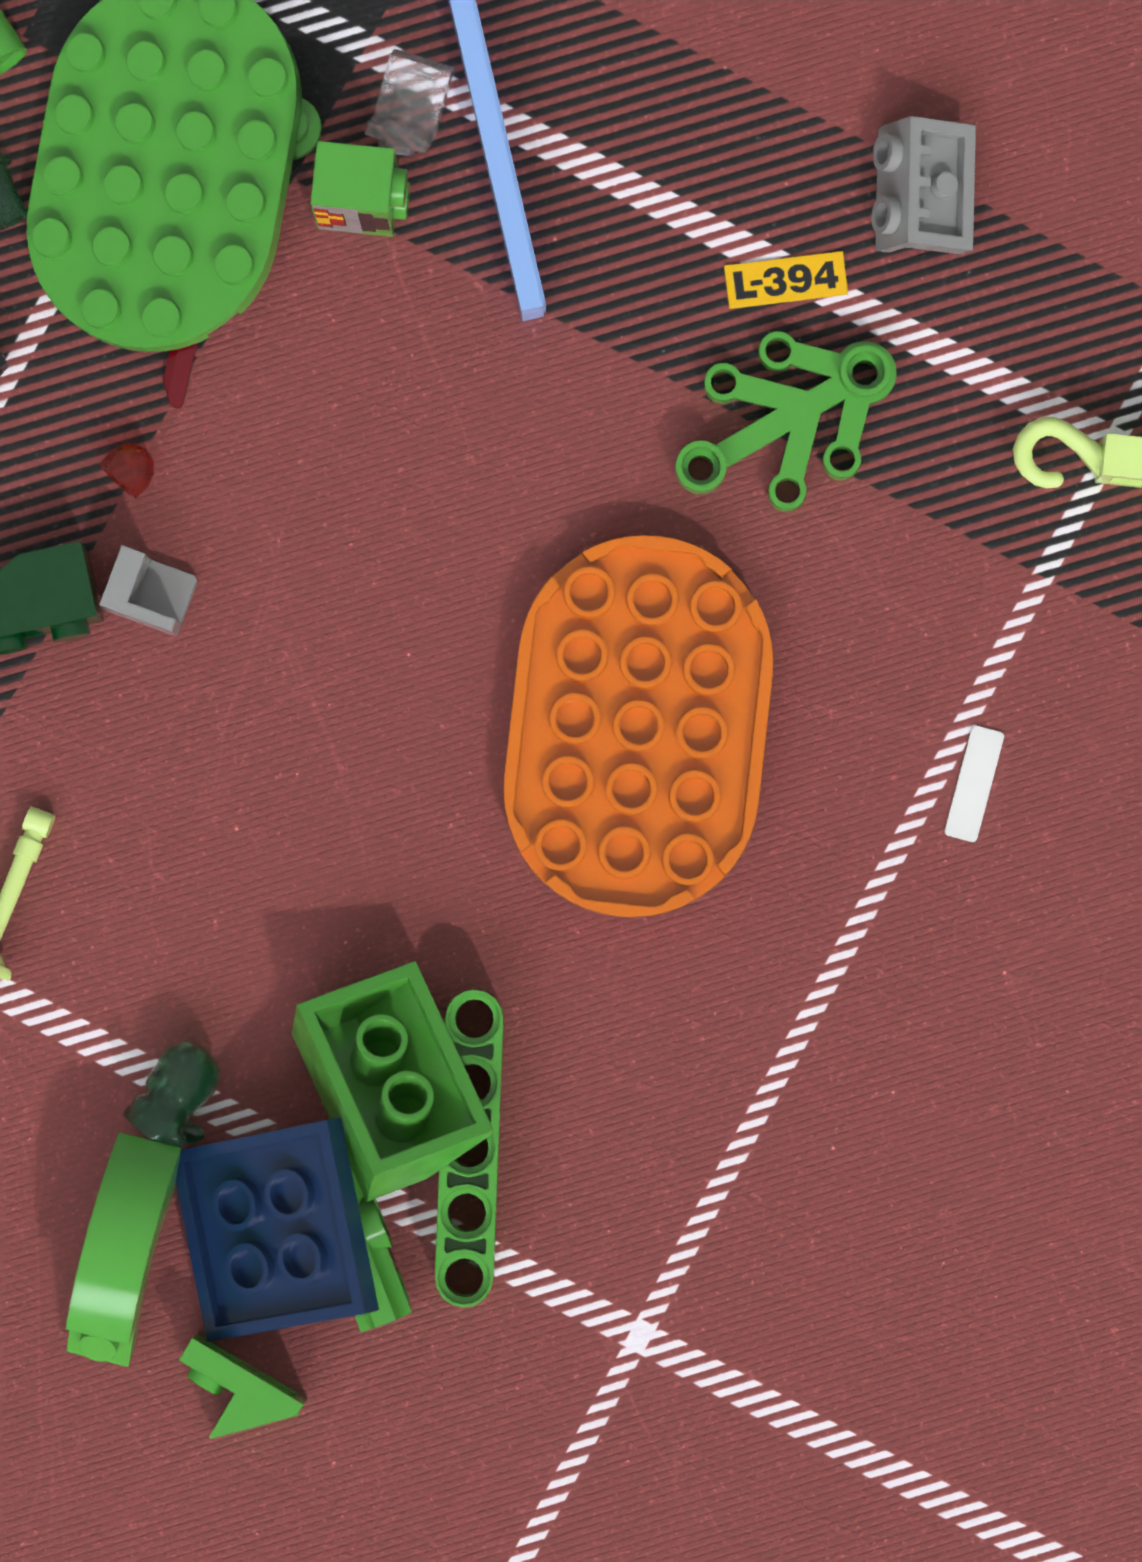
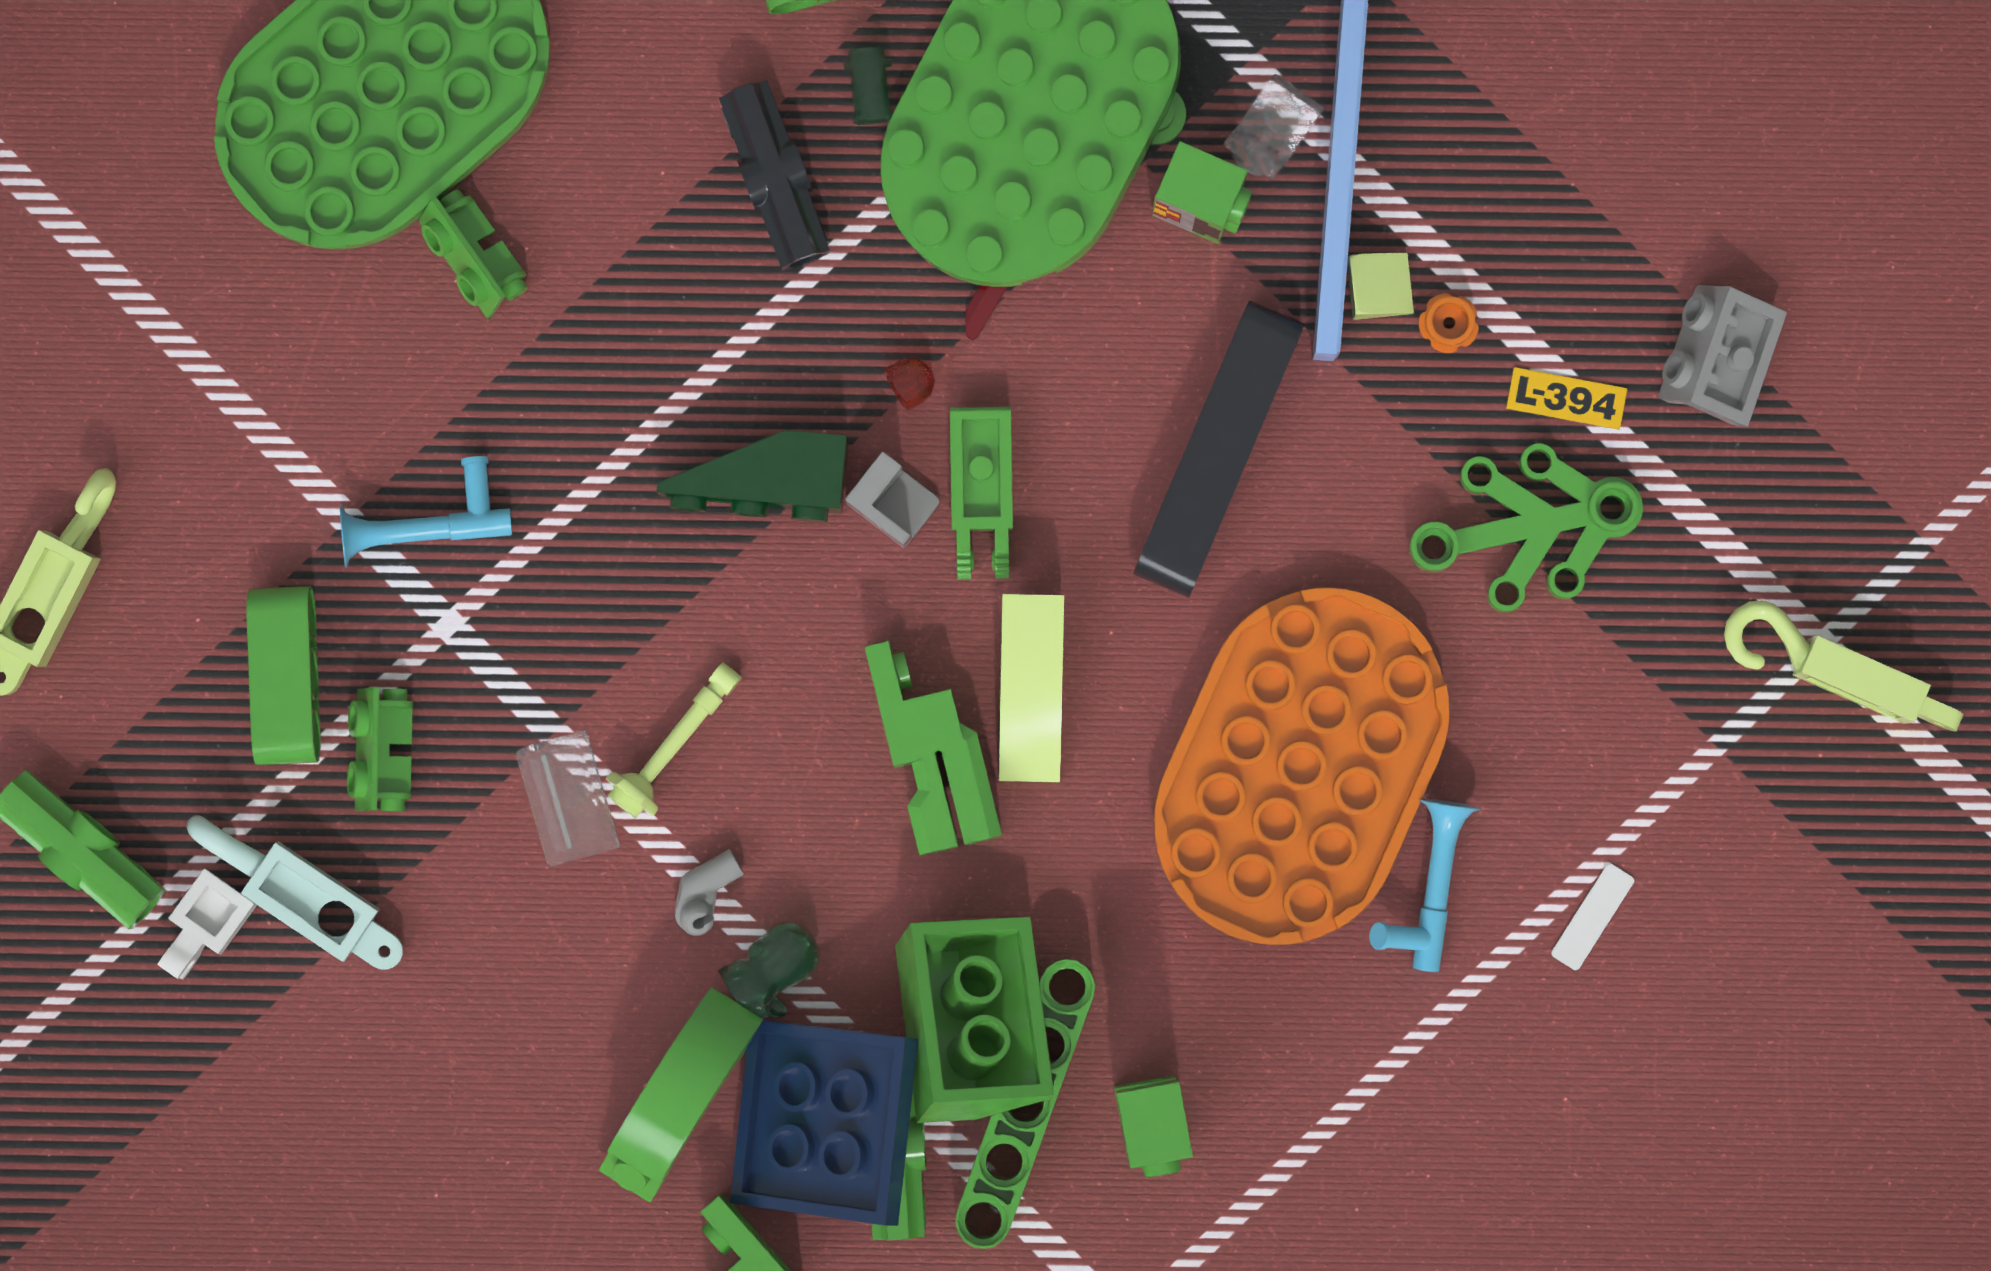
camera: 25 degrees right, 0 degrees up
(79, 1040) = (699, 891): none -> light grey arm
(232, 547) = (981, 483): none -> bright green hinge
(245, 818) = (915, 735): none -> bright green plate
(345, 733) = (1031, 688): none -> yellowish green slope
(456, 437) = (1218, 448): none -> black beam
(565, 226) = (1379, 285): none -> yellowish green slope
(601, 1129) = (1153, 1125): none -> bright green arch
(645, 225) = (1462, 313): none -> orange plate
(818, 855) = (1429, 935): none -> medium azure piece

